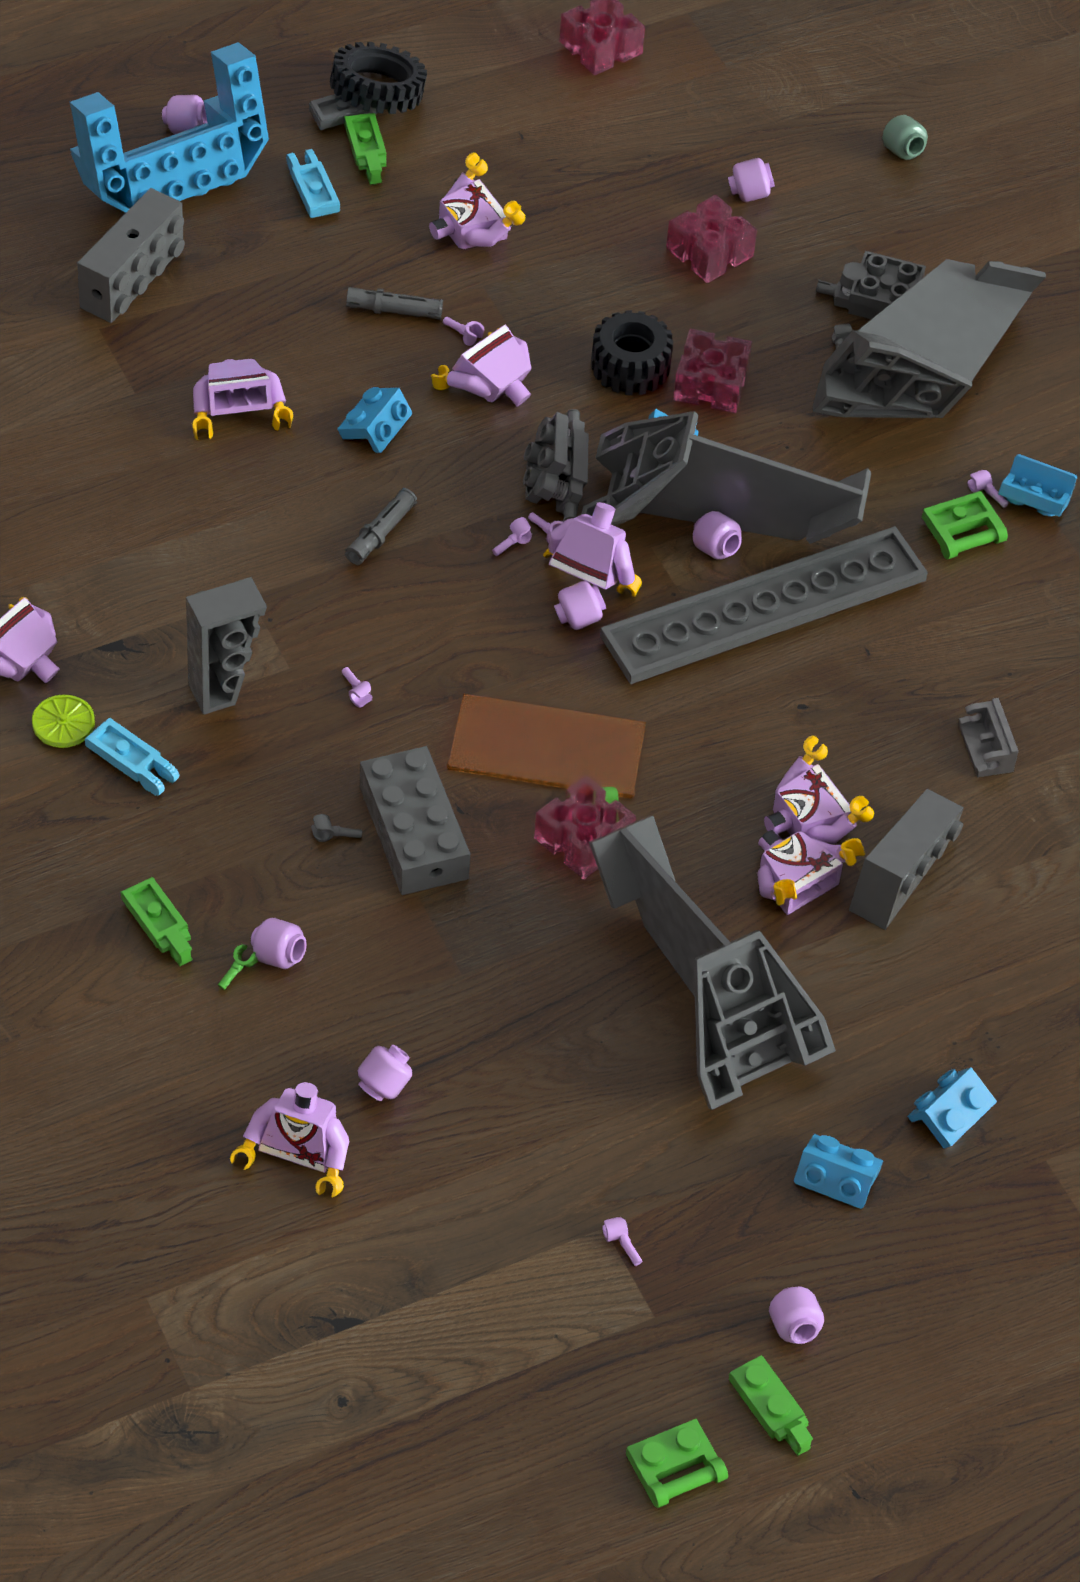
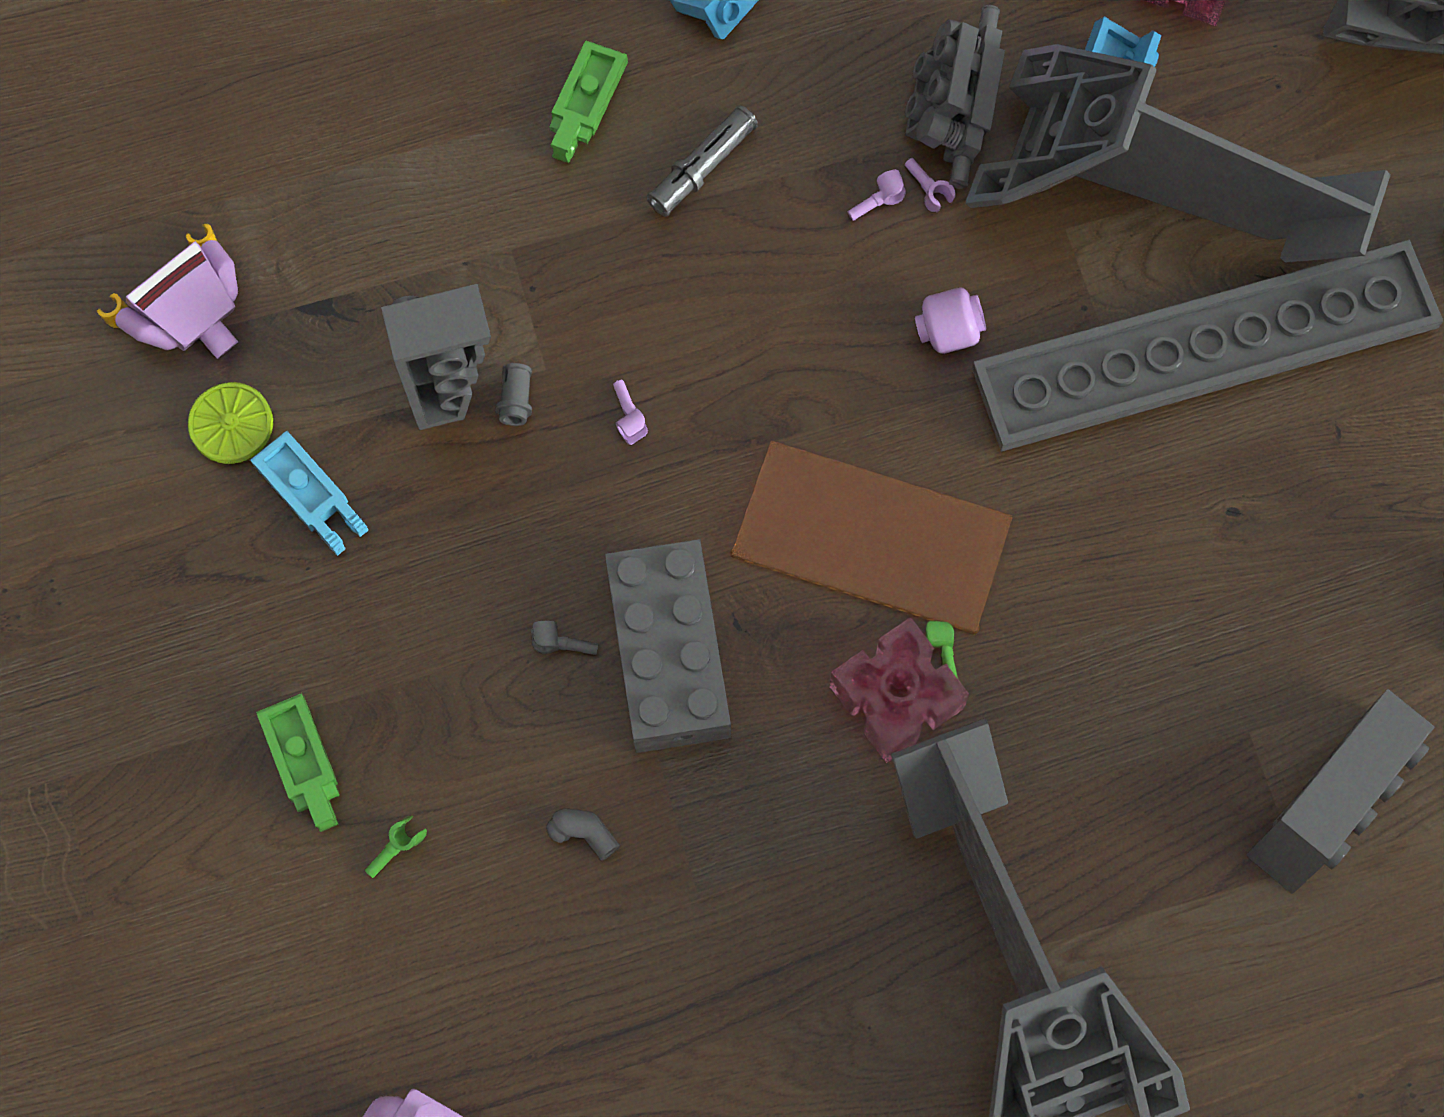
camera: 15 degrees right, 20 degrees up
(272, 688) = (514, 405): none -> dark grey pin
(278, 943) = (452, 822): lavender head -> none
(287, 495) = (585, 97): none -> bright green hinge
(374, 938) = (584, 825): none -> dark grey arm
(384, 1072) = (559, 1058): lavender head -> none
(594, 550) = (980, 247): lavender torso -> none
(717, 535) = (1158, 227): lavender head -> none
(801, 867) = (1187, 791): torso -> none
(812, 803) = (1221, 689): torso -> none

